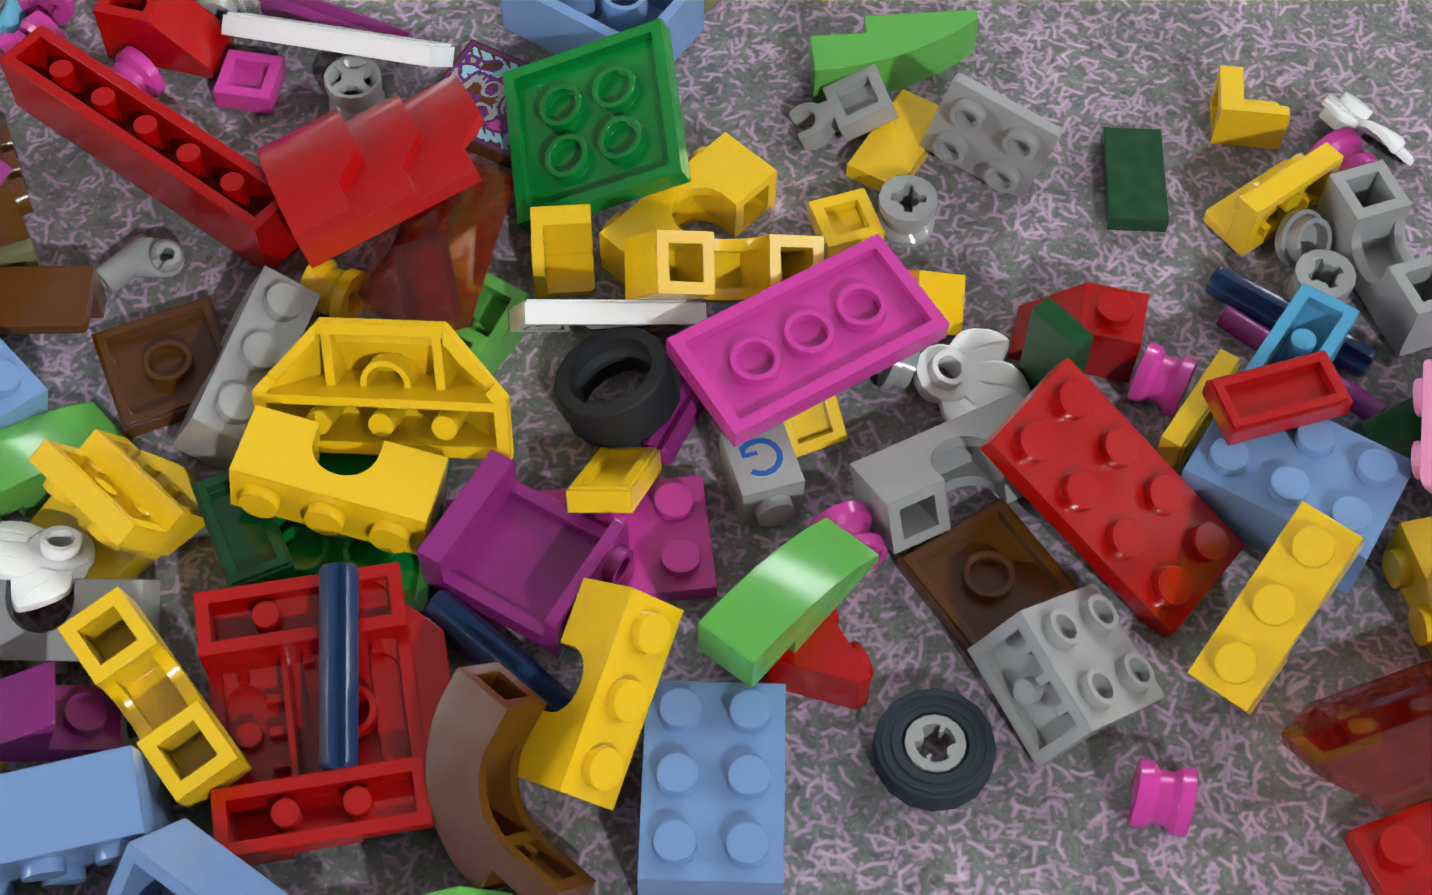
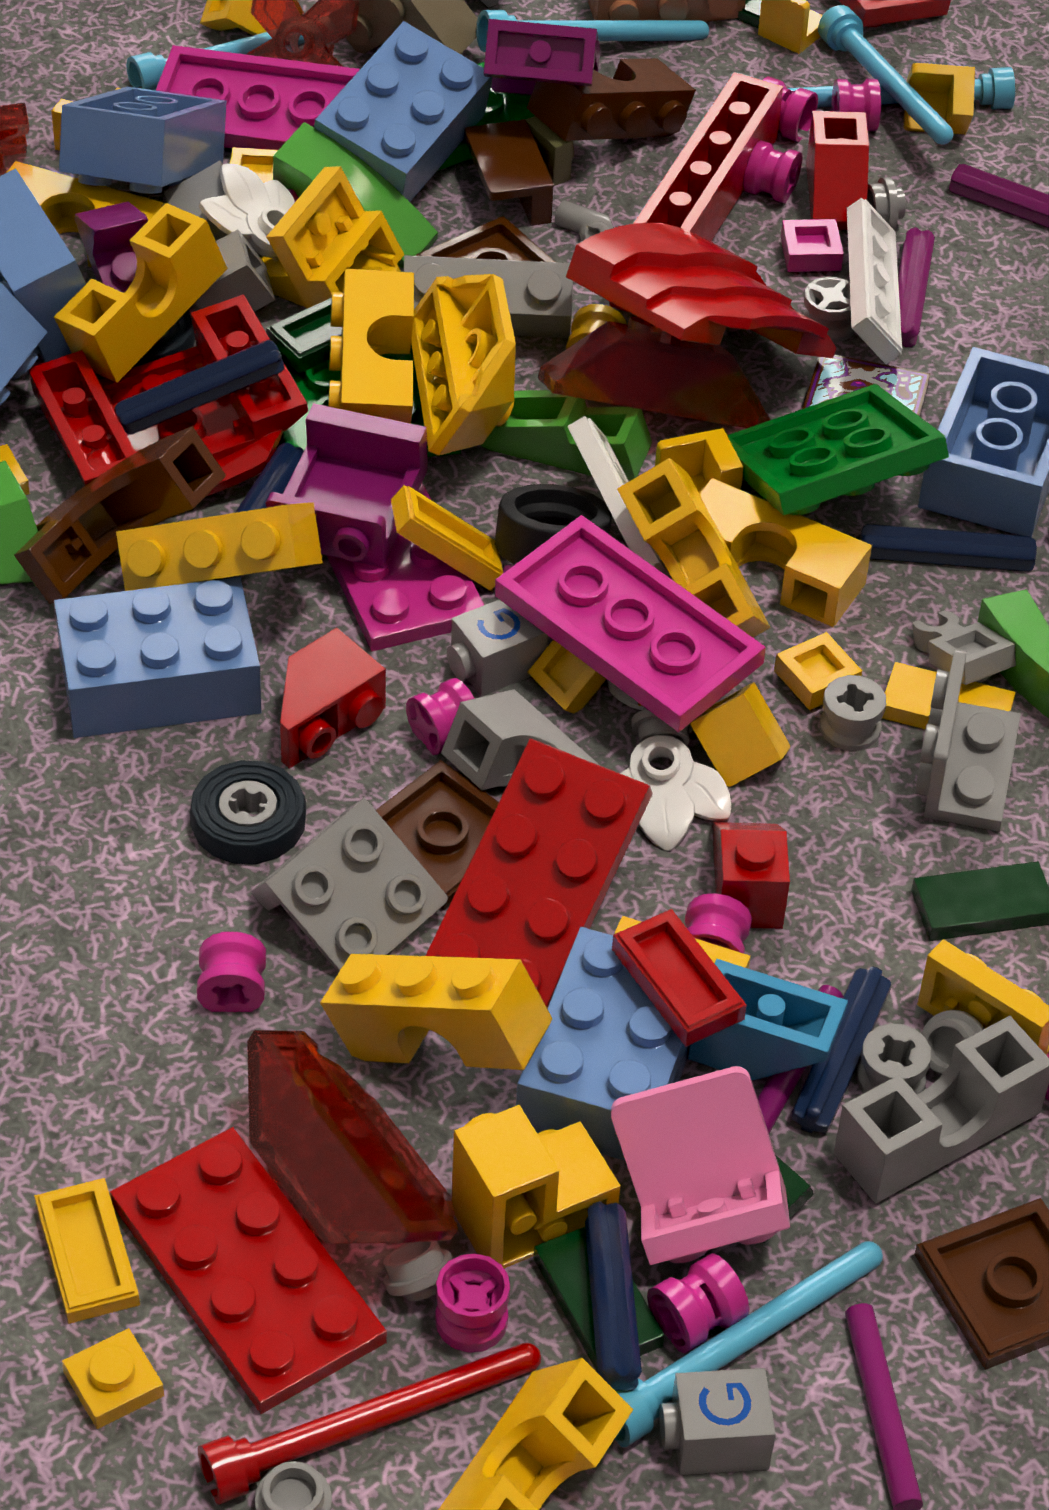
camera: 75 degrees right, 10 degrees down
(708, 81) = (950, 547): none -> dark blue axle
(783, 600) = (336, 640): bright green slope -> none
(1051, 339) = (688, 820): dark green tile -> none

